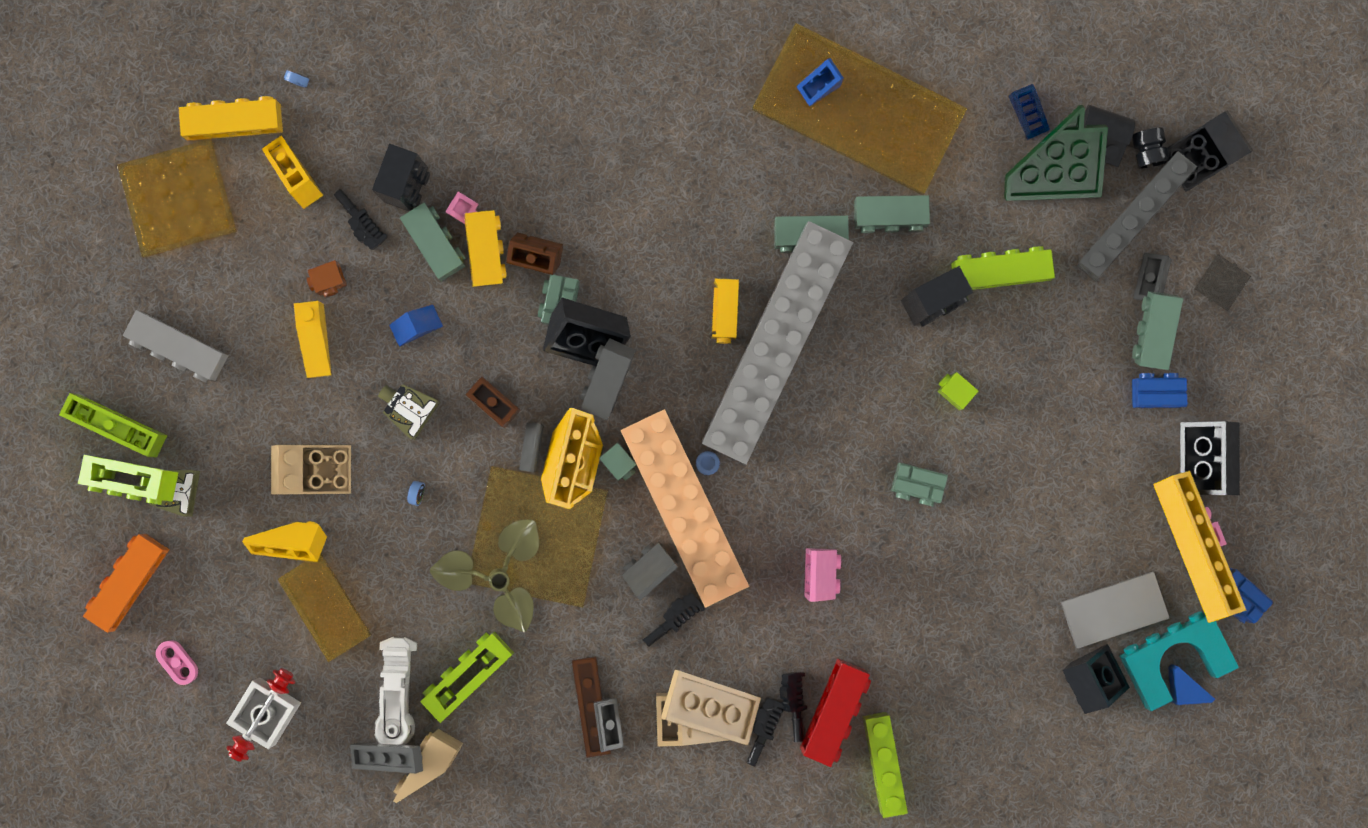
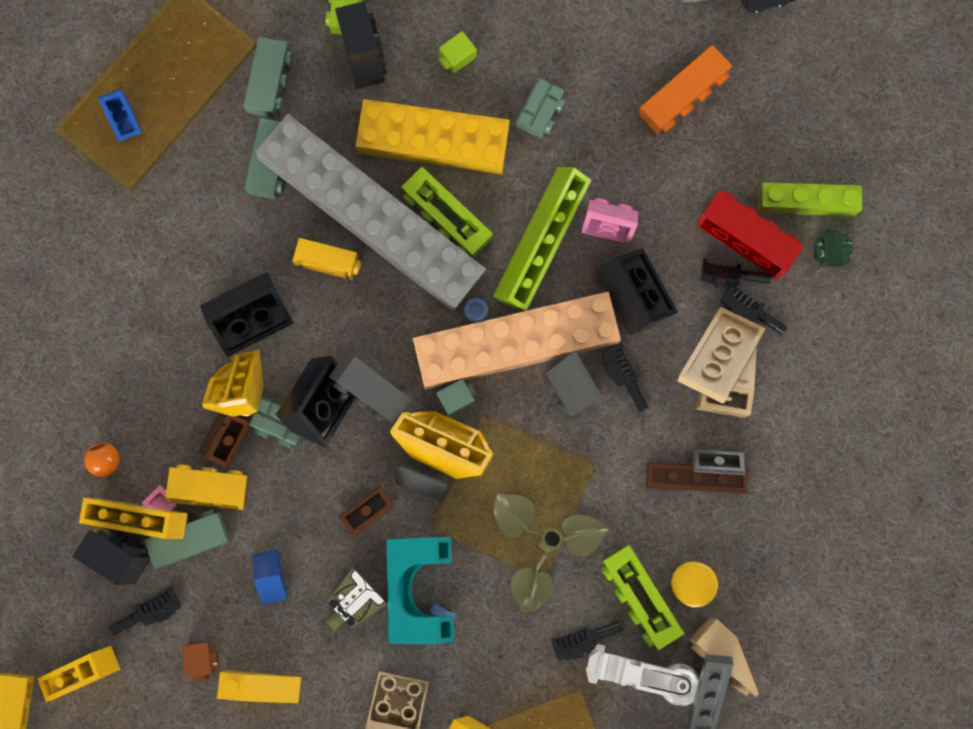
camera: 75 degrees left, 5 degrees down
(400, 460) = (405, 620): none -> teal arch
(411, 623) = (581, 642): none -> black piece
(440, 188) = (133, 518): none -> yellow brick
(489, 723) = (694, 584): none -> yellow piece
(490, 145) = (101, 459): none -> orange piece
(584, 253) = (236, 386): none -> yellow wedge
(656, 246) = (246, 314): none -> black slope
(758, 614) = (636, 291): none -> black slope
(789, 512) = (542, 238): none -> lime brick
(815, 380) = (417, 186): none -> lime brick
(841, 797) = (833, 248): none -> clear green brick
(867, 385) = (432, 136): none -> yellow brick
(969, 621) = (685, 89): none -> orange brick

